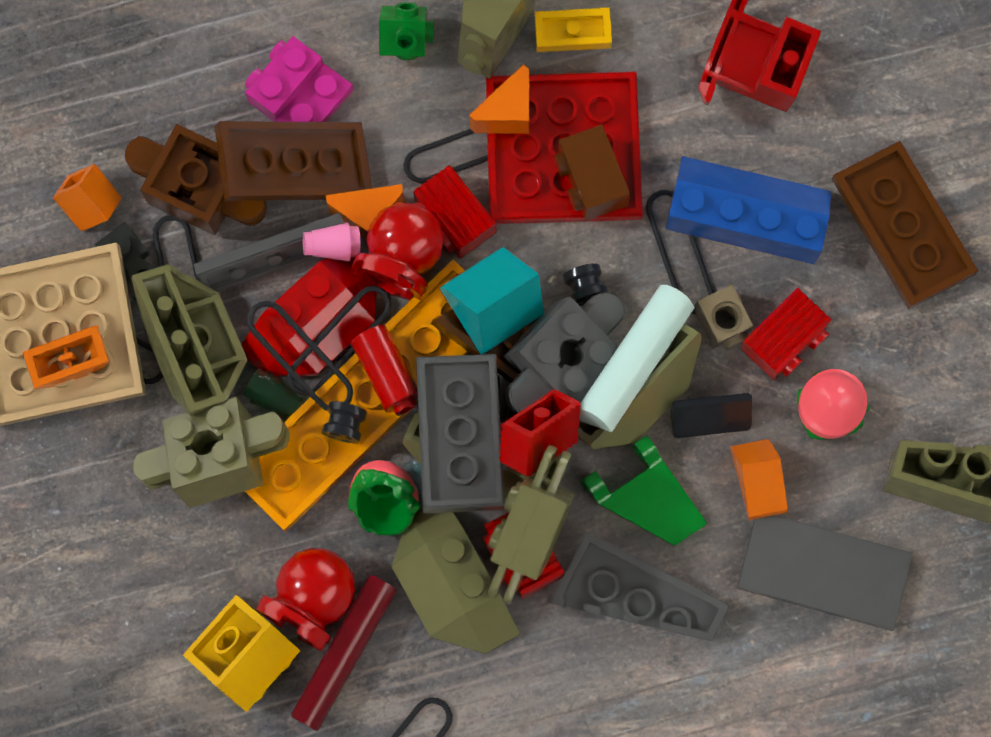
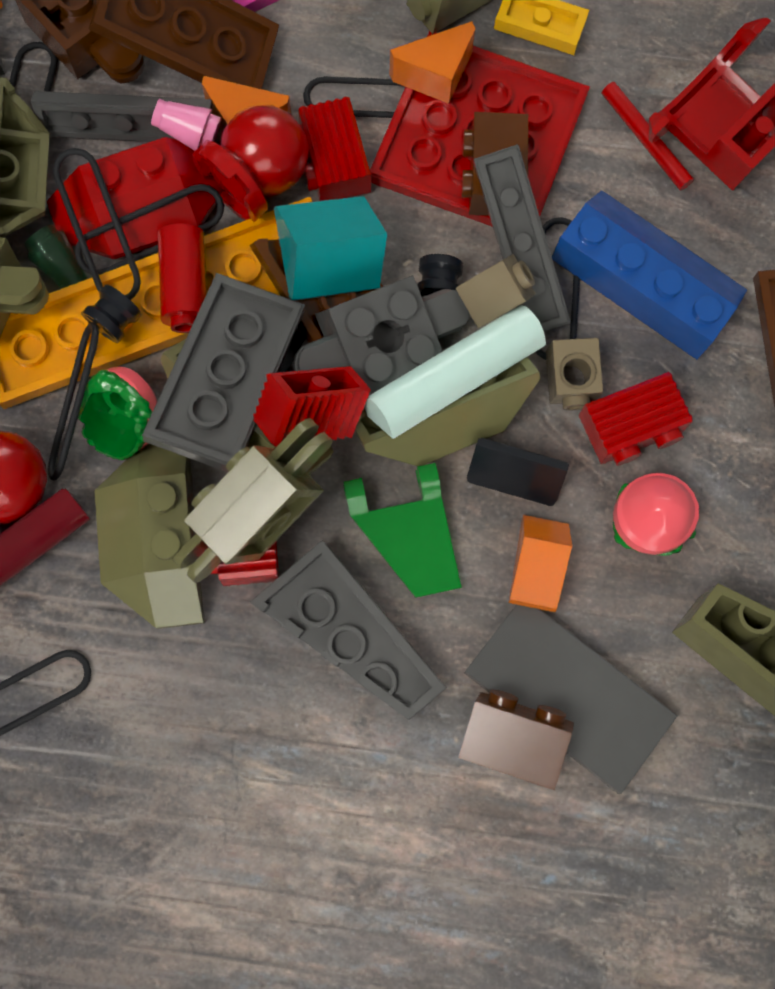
camera: 15 degrees right, 0 degrees up
(354, 568) = (52, 473): none -> black piece
(638, 228) = (520, 230): none -> dark grey tile
(638, 279) = (497, 290): none -> dark tan brick
(690, 89) = (640, 128): none -> red bar
(799, 620) = (517, 738): none -> brick

